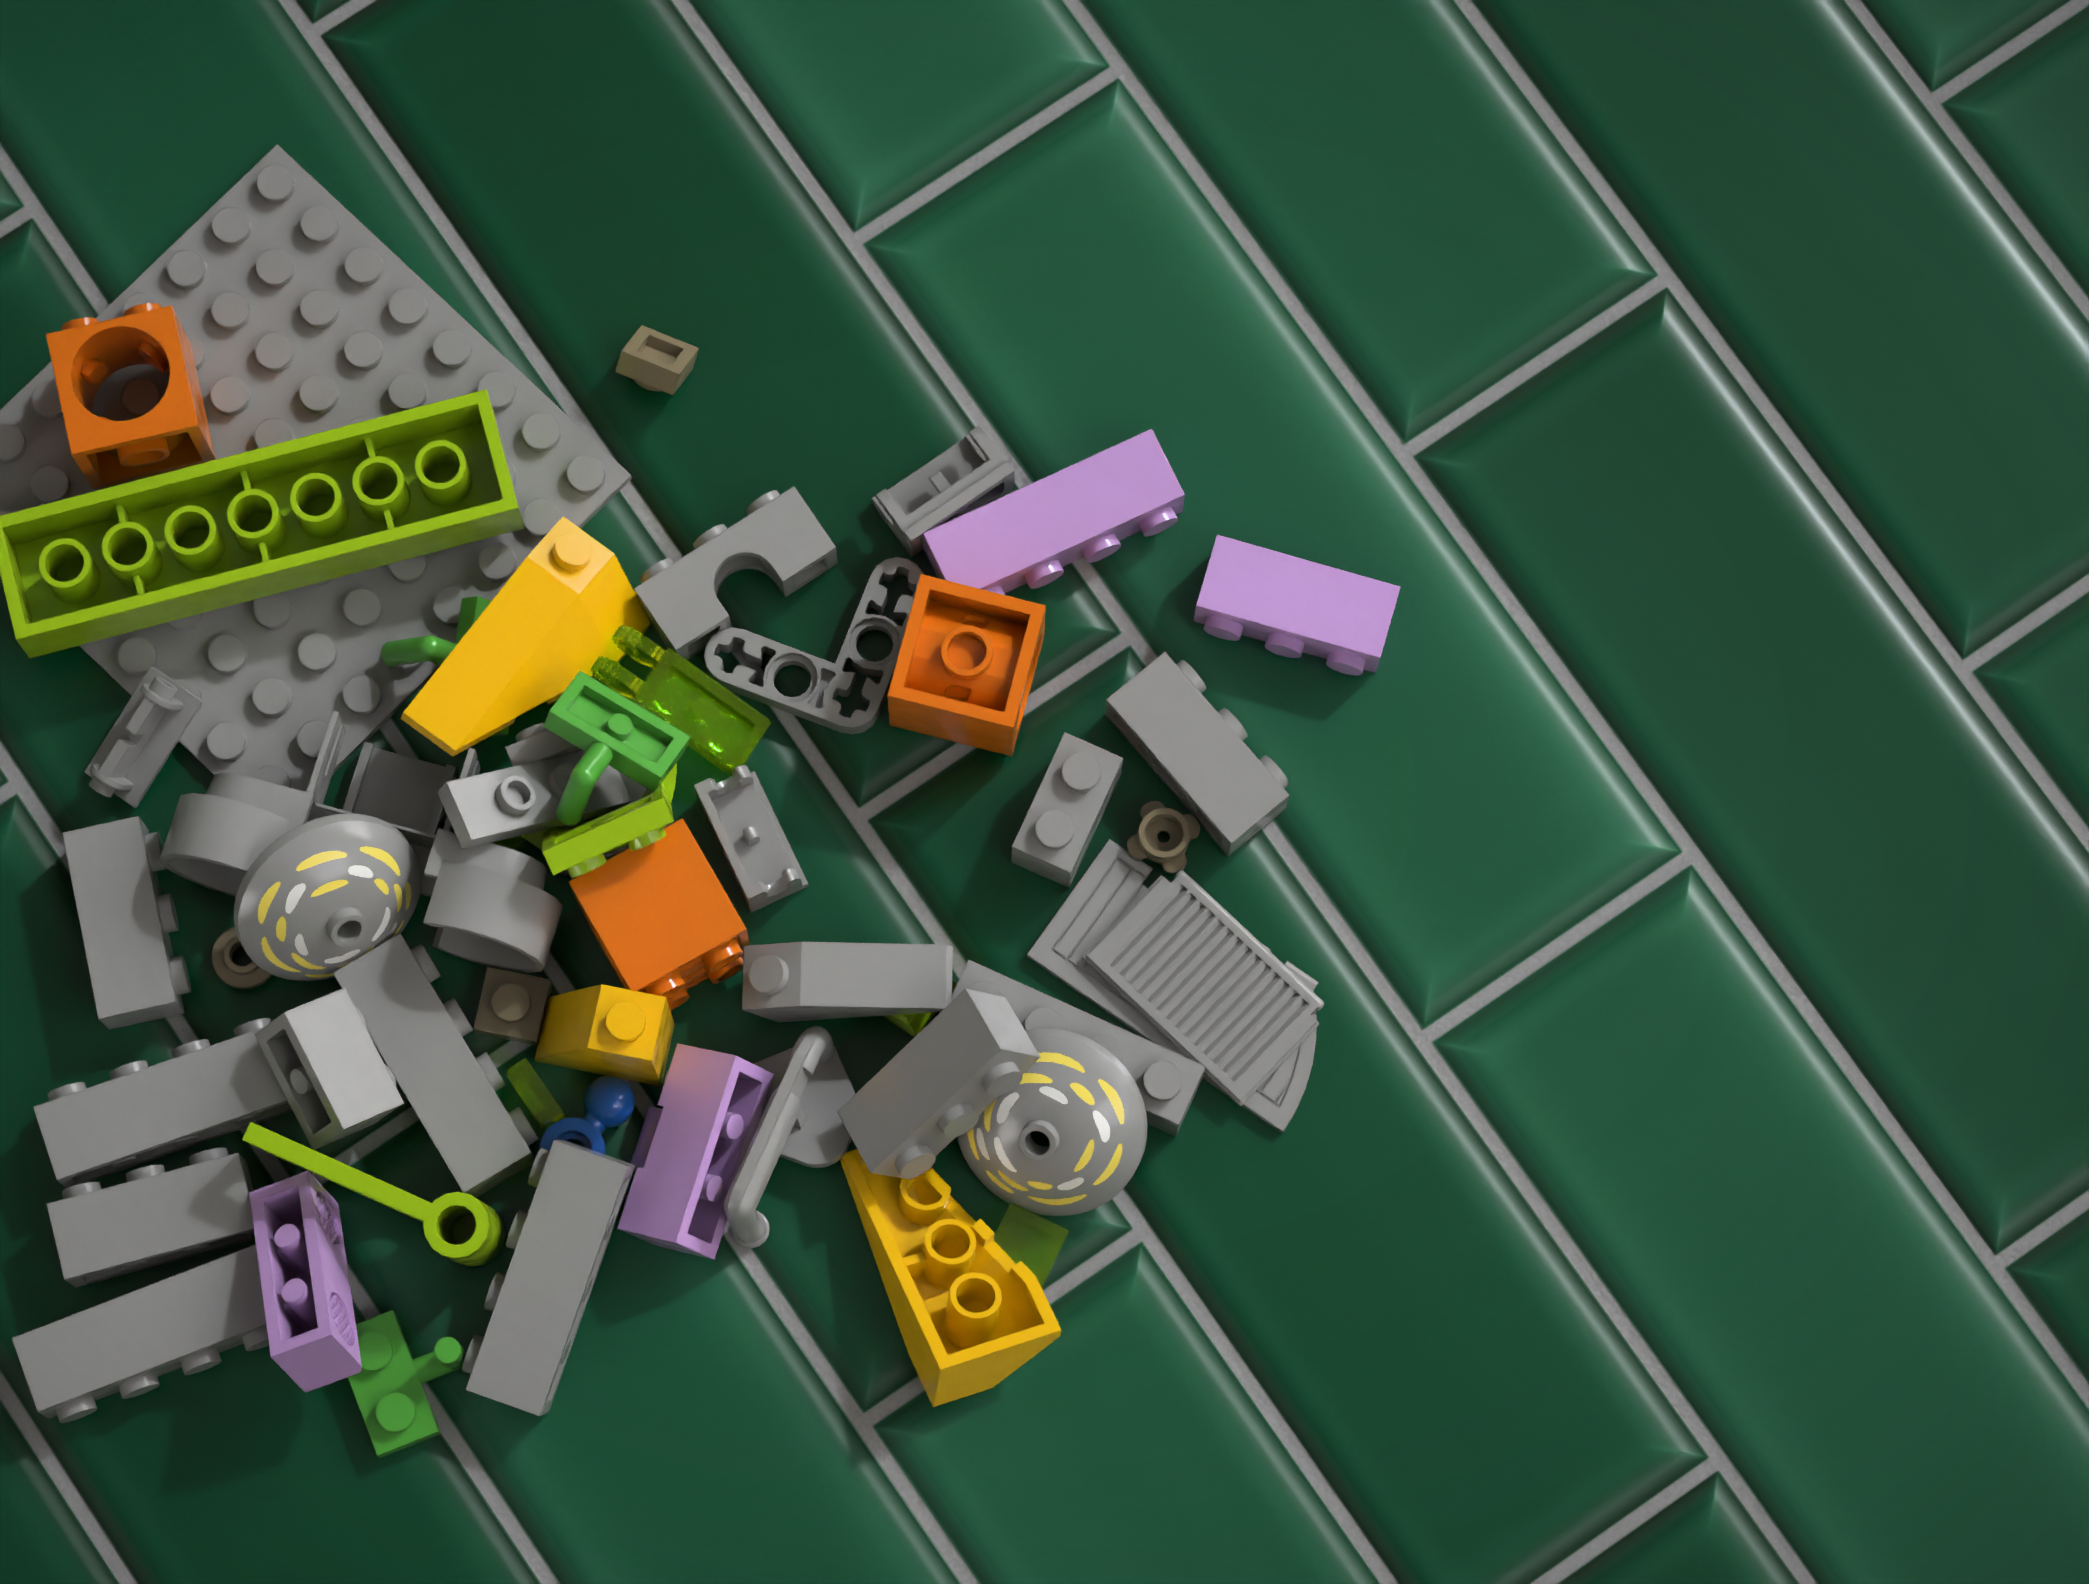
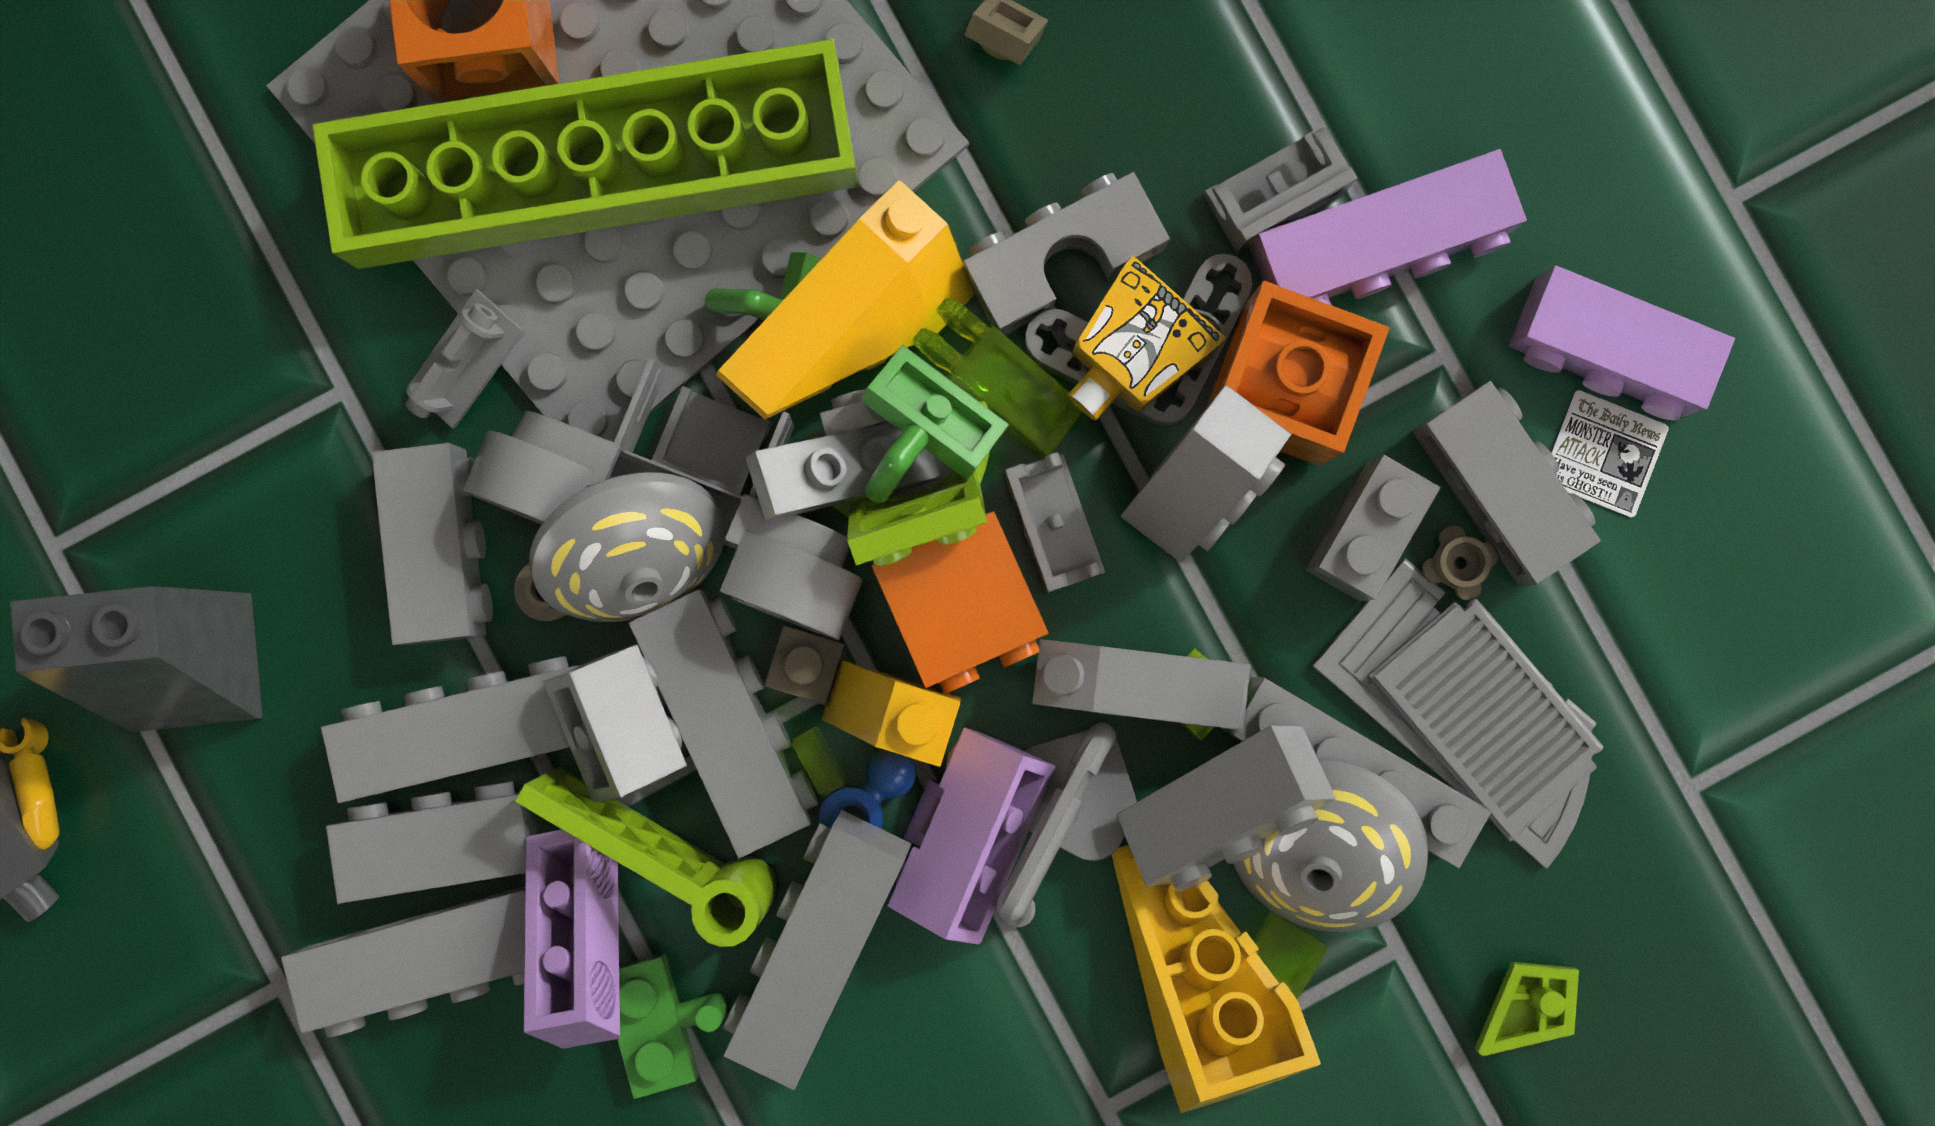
camera: 10 degrees right, 10 degrees up
(815, 651) = (1139, 343): none -> torso
(888, 769) = (1209, 476): none -> light grey brick
(1280, 1270) = (1530, 1008): none -> lime piece
(1302, 716) = (1607, 452): none -> sticker

